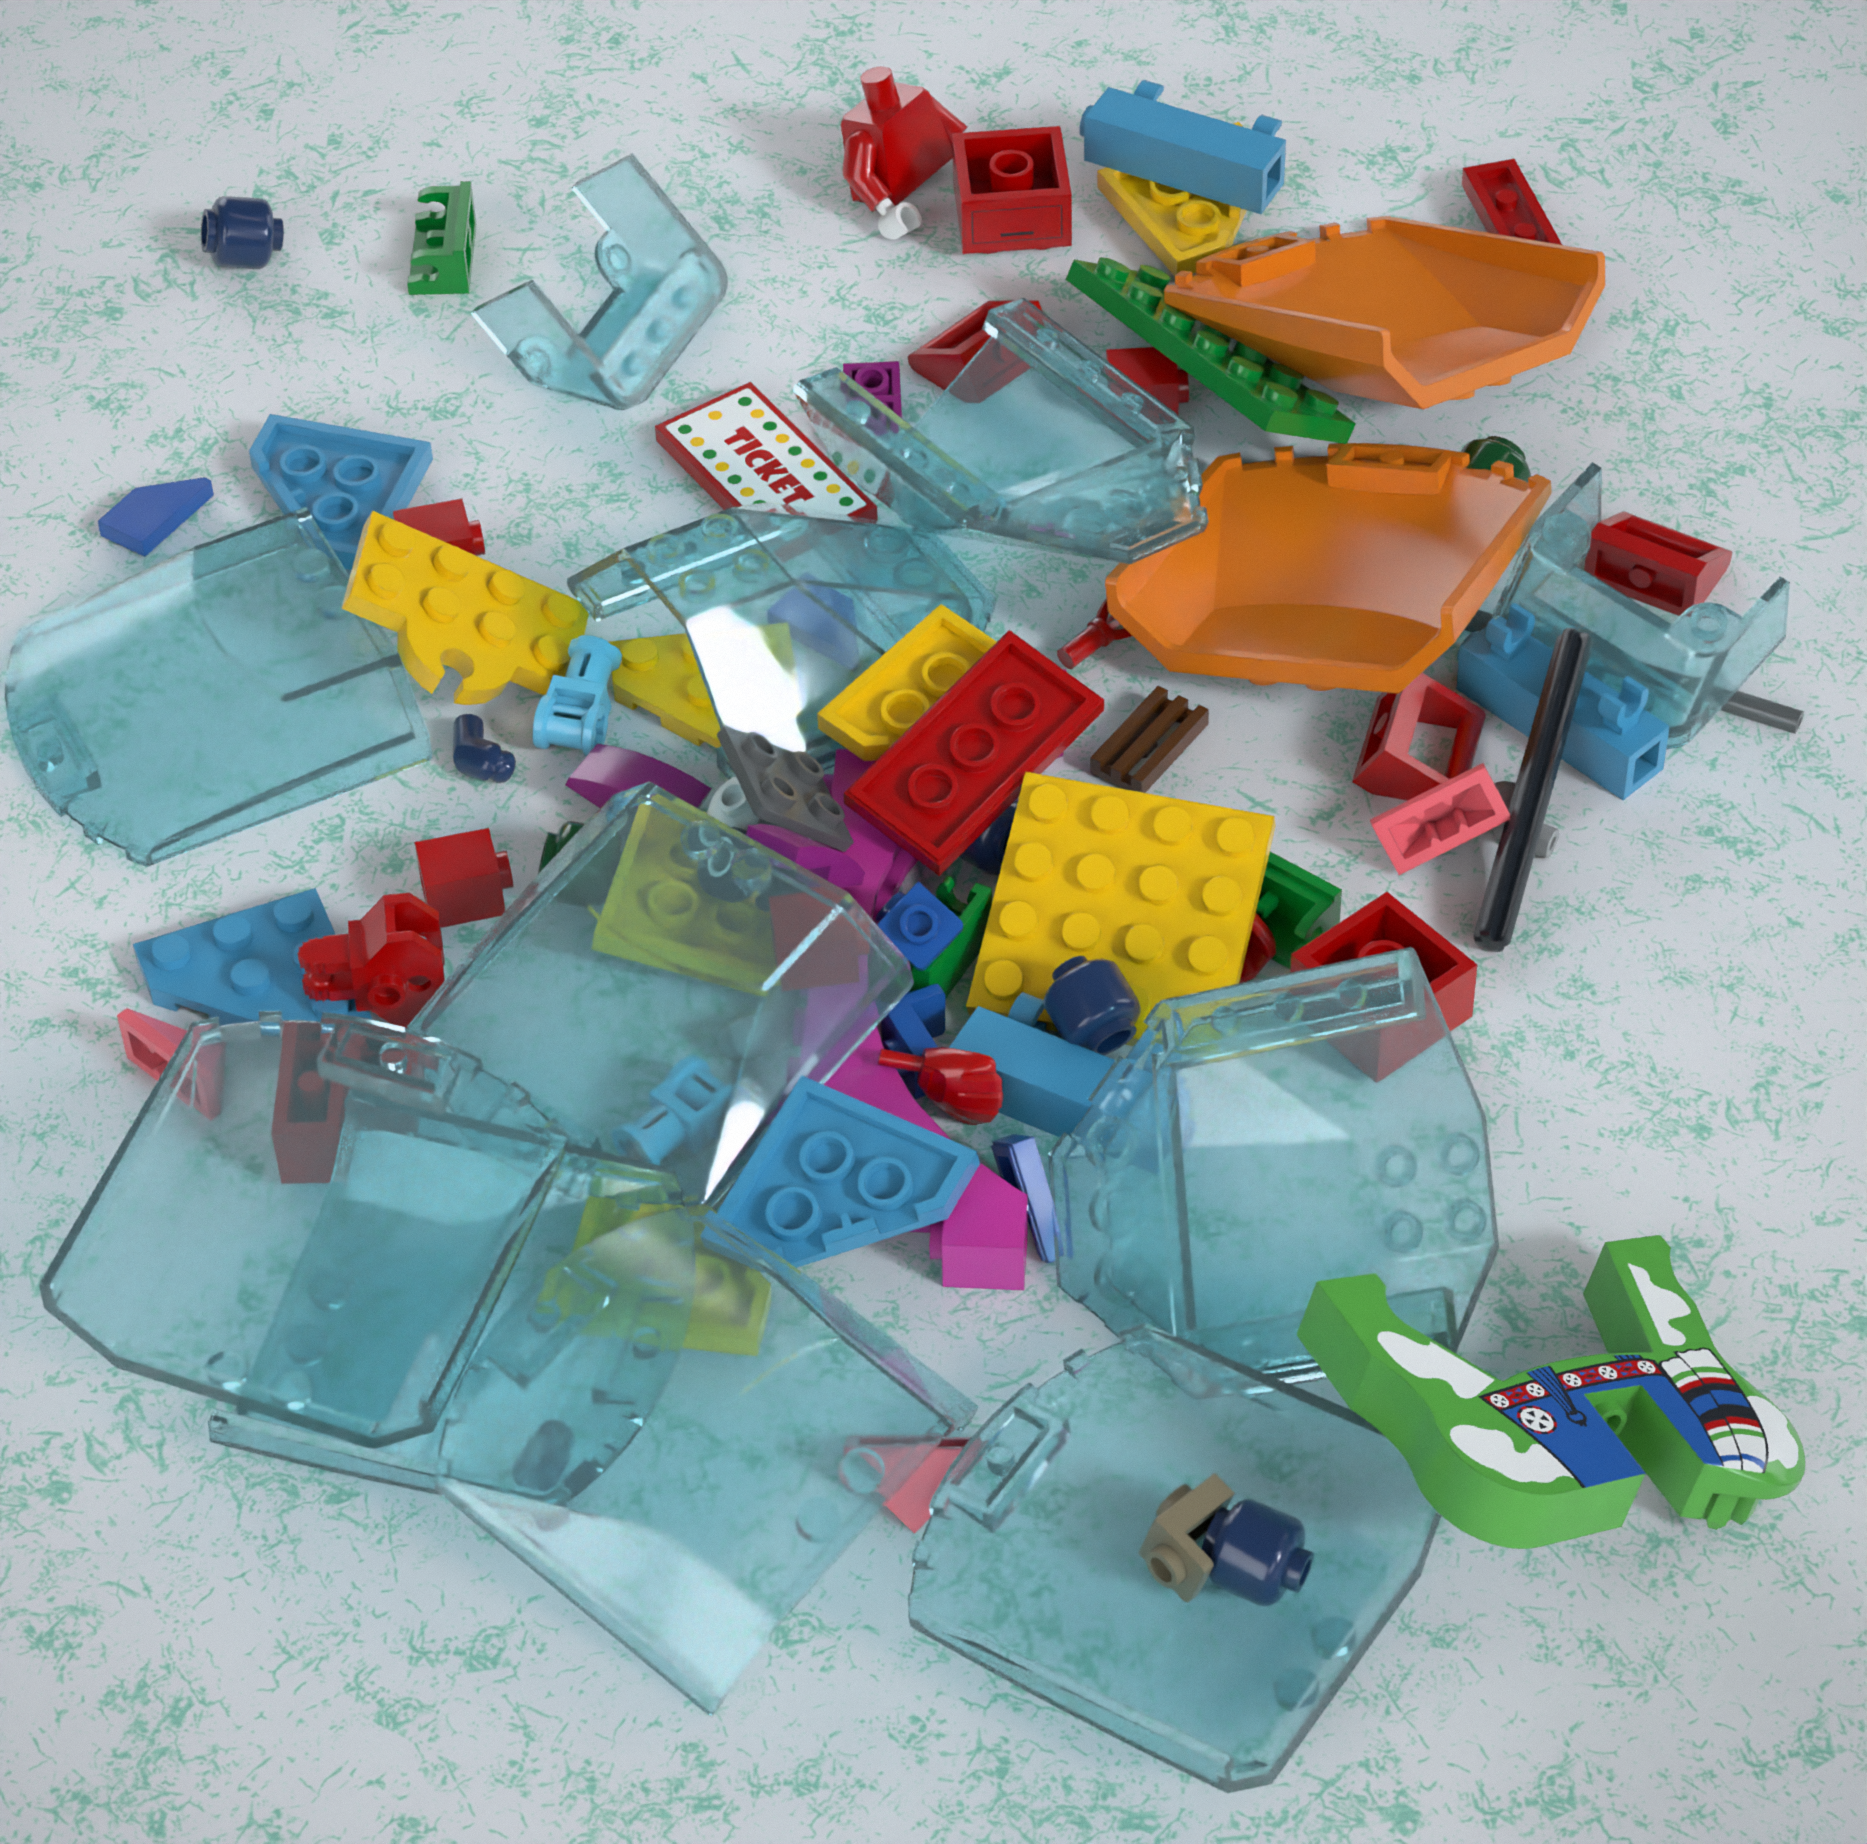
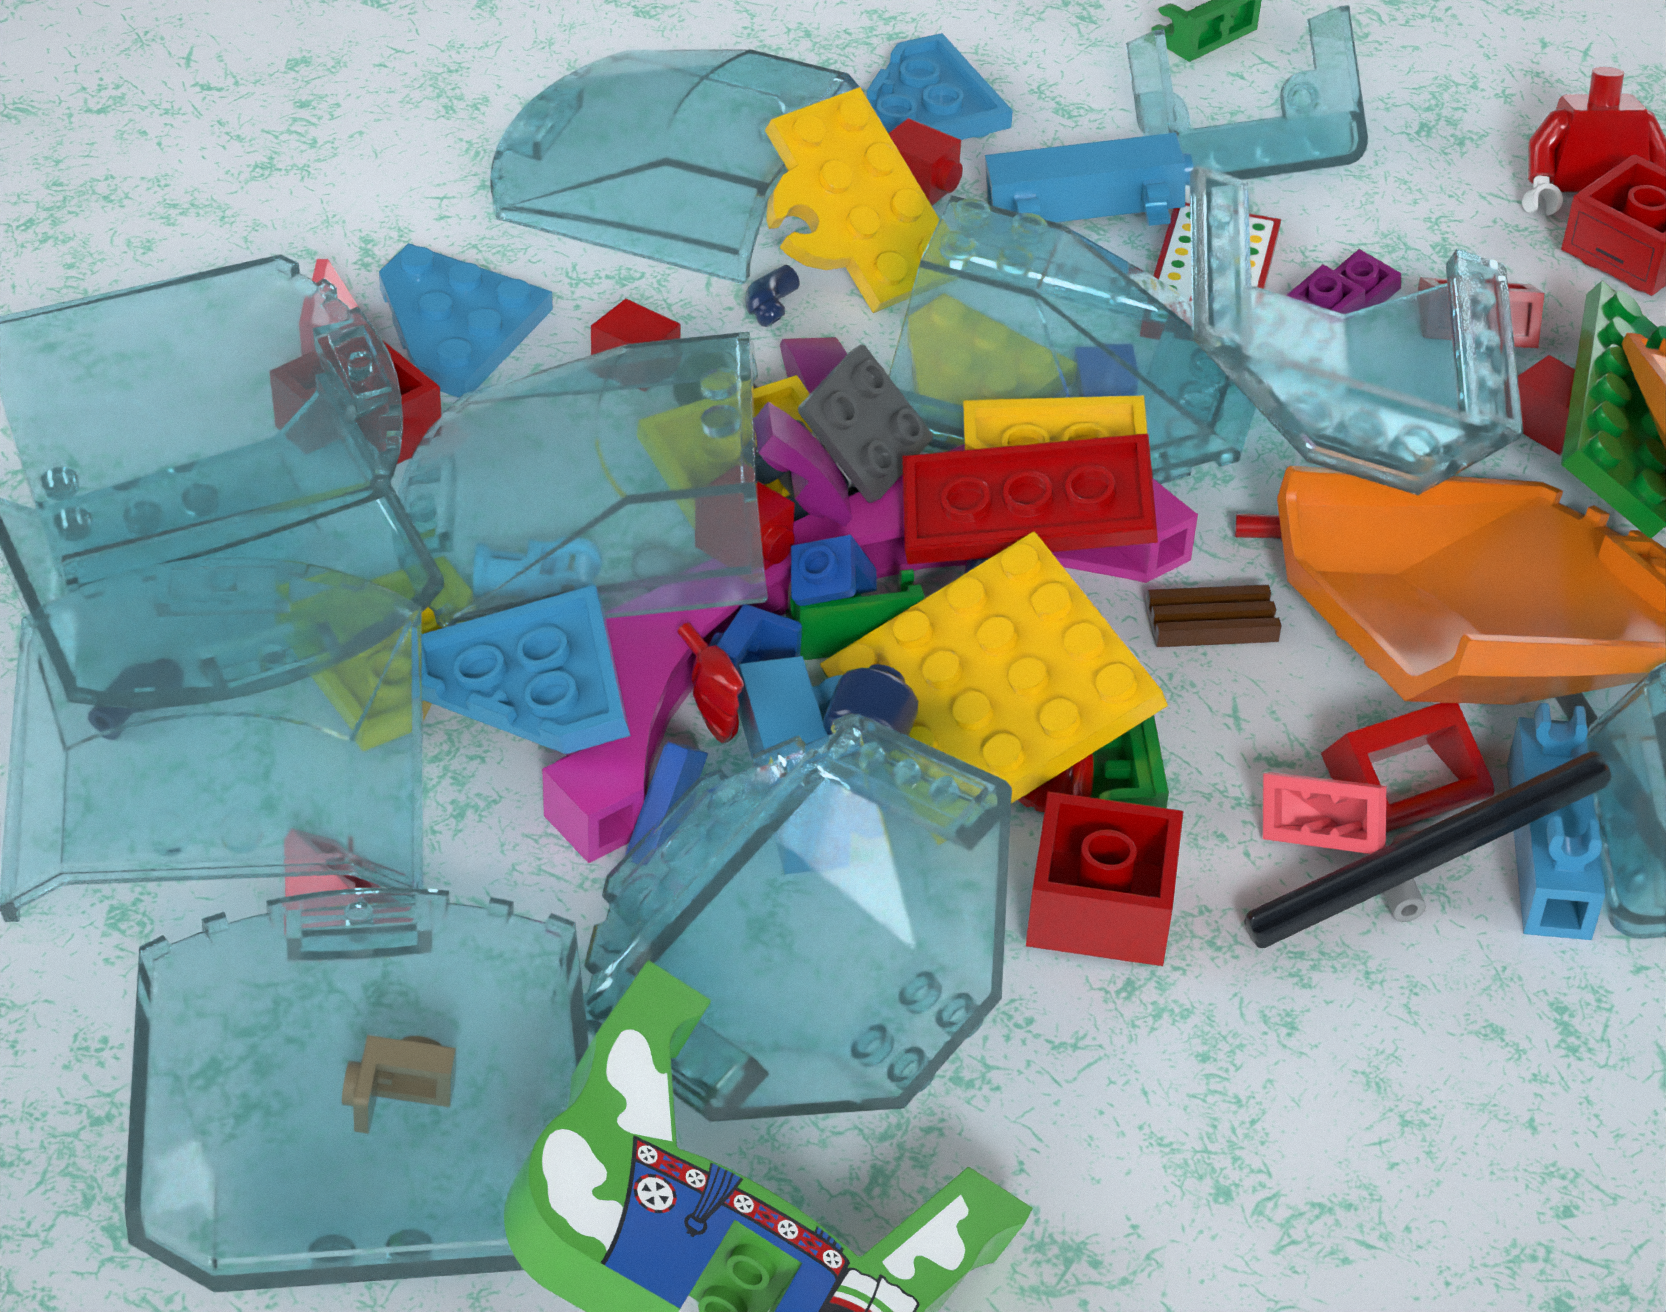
camera: 45 degrees right, 5 degrees down
(153, 513) = (804, 43): blue tile -> none
(380, 960) = (498, 338): red hinge -> none
(578, 705) = (862, 306): medium azure connector -> none
(581, 462) = (1092, 179): none -> dark azure brick
(1257, 1552) = (421, 1133): dark blue head -> none

